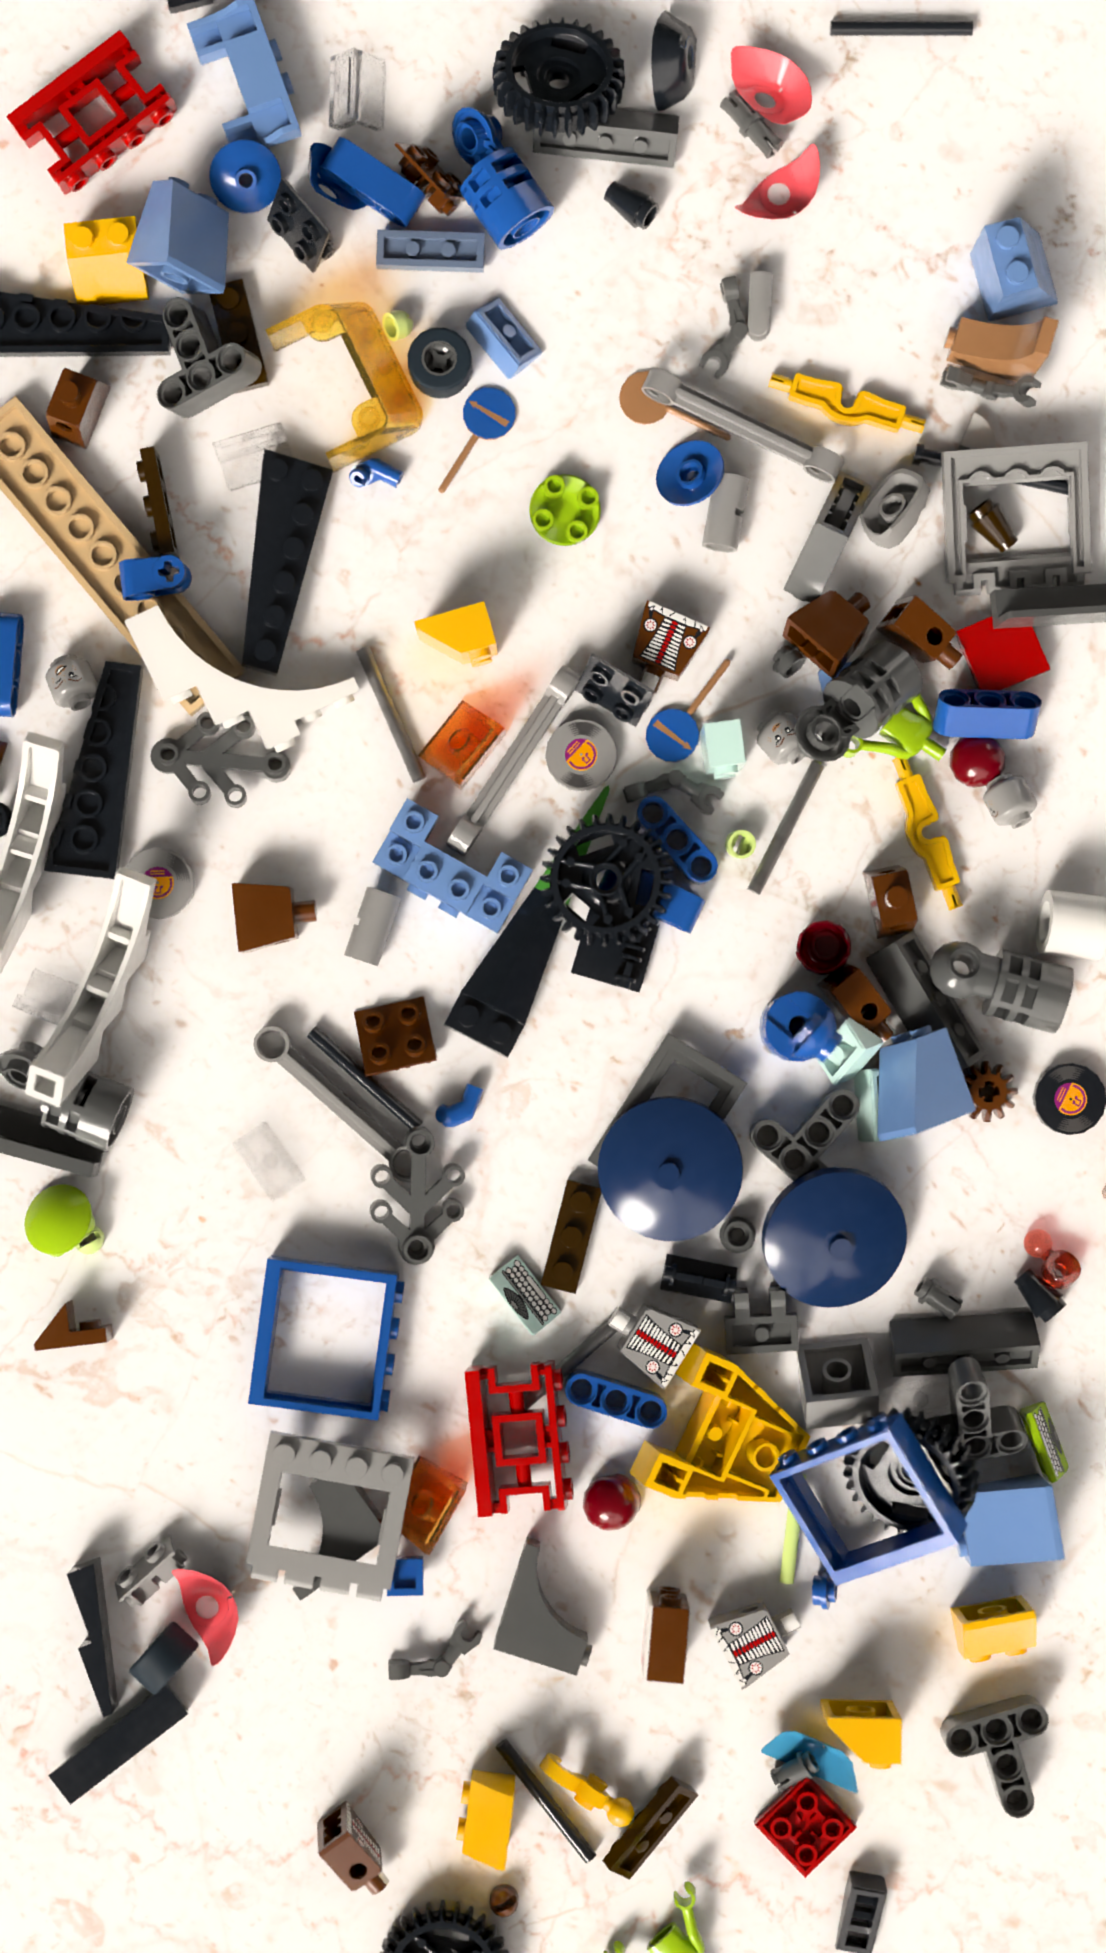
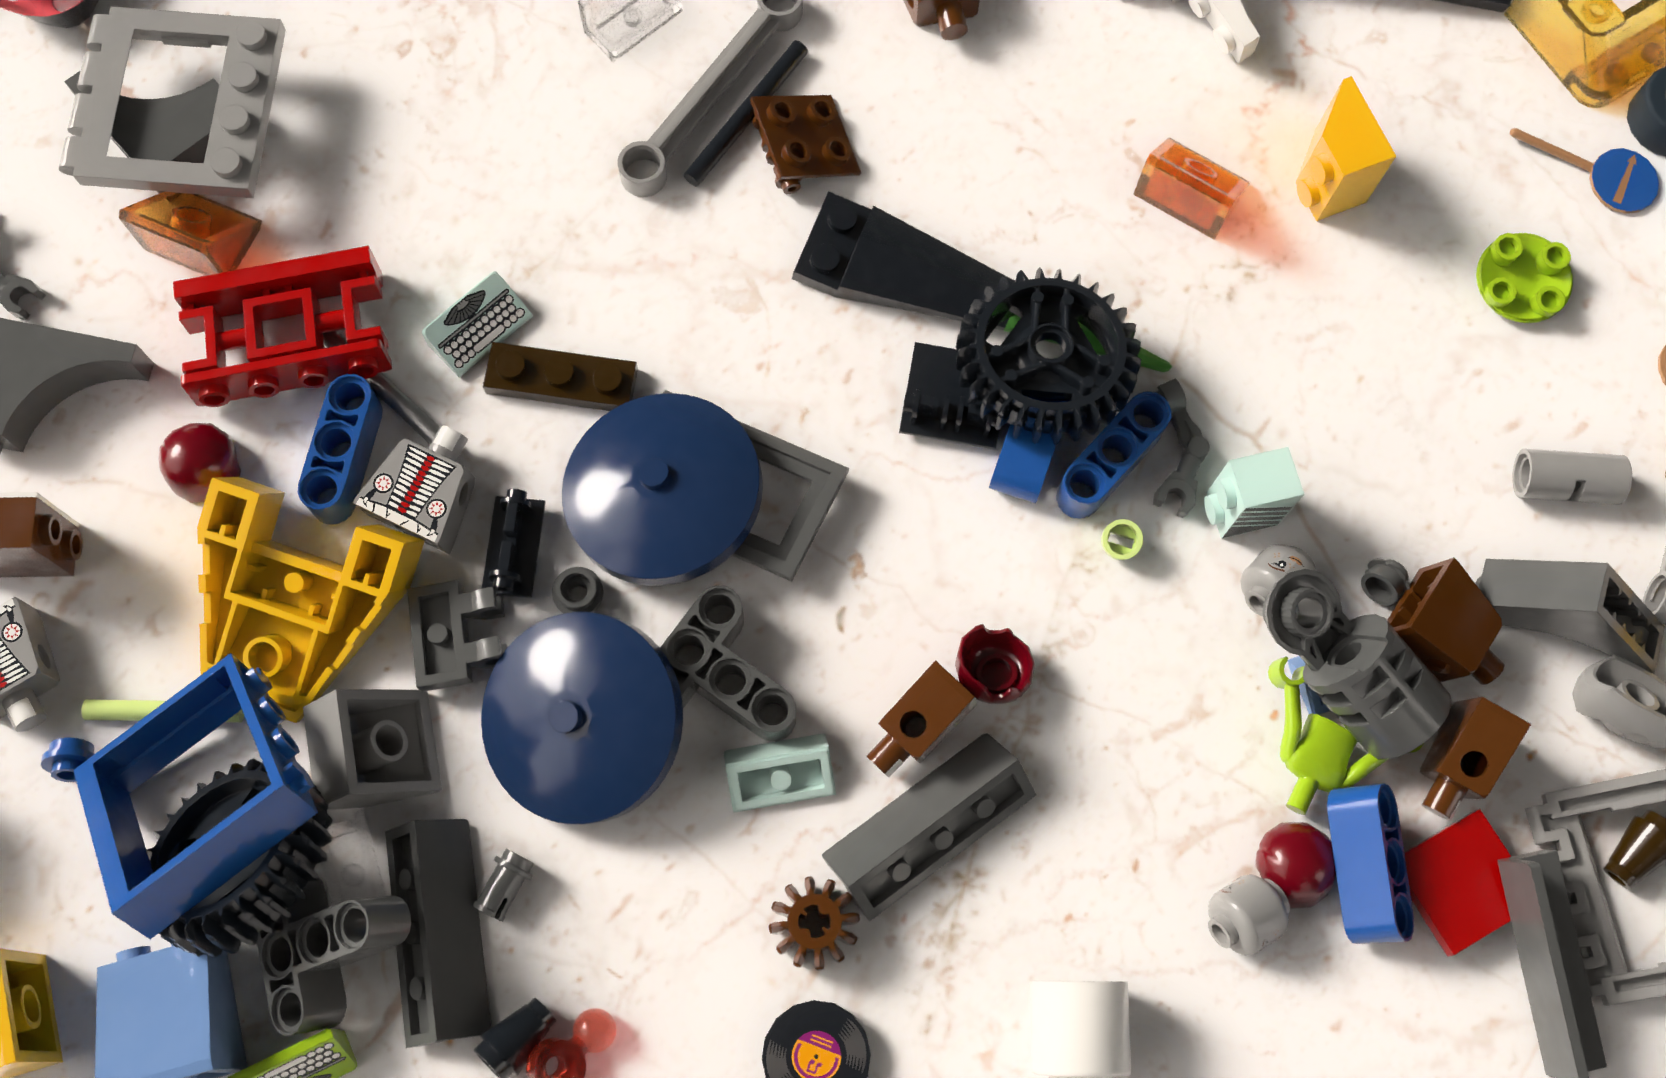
camera: 80 degrees right, 15 degrees down
(266, 1332) = (405, 25): blue window -> none
(373, 471) = (1519, 52): blue arm -> none
(375, 923) = (943, 97): light grey pin -> none
(391, 714) = (1215, 101): flat silver bar -> none
(408, 1577) = (95, 210): blue tile -> none
(417, 1202) = (593, 177): dark grey plant -> none
(437, 874) = (1022, 157): medium blue bracket -> none
(462, 1111) = (716, 227): blue arm -> none
(553, 700) = (1288, 290): light grey piece -> none
(581, 755) = (1206, 329): light grey tile -> none
(614, 690) = (1303, 353): black hinge -> none
(666, 644) = (1376, 416): torso -> none
(674, 733) = (1258, 432): blue piece -> none
(682, 465) = (1614, 423): blue dish -> none
(785, 827) = (1154, 603): flat silver bar -> none
(813, 1040) = (878, 630): blue cylinder -> none
(852, 1052) = (850, 711): light aqua slope -> none
(890, 900) = (1072, 751): reddish brown torso -> none
(919, 1084) = (815, 814): medium blue slope -> none
(934, 851) = (1155, 813): yellow piece -> none
(1012, 983) = (979, 939): dark grey cylinder -> none

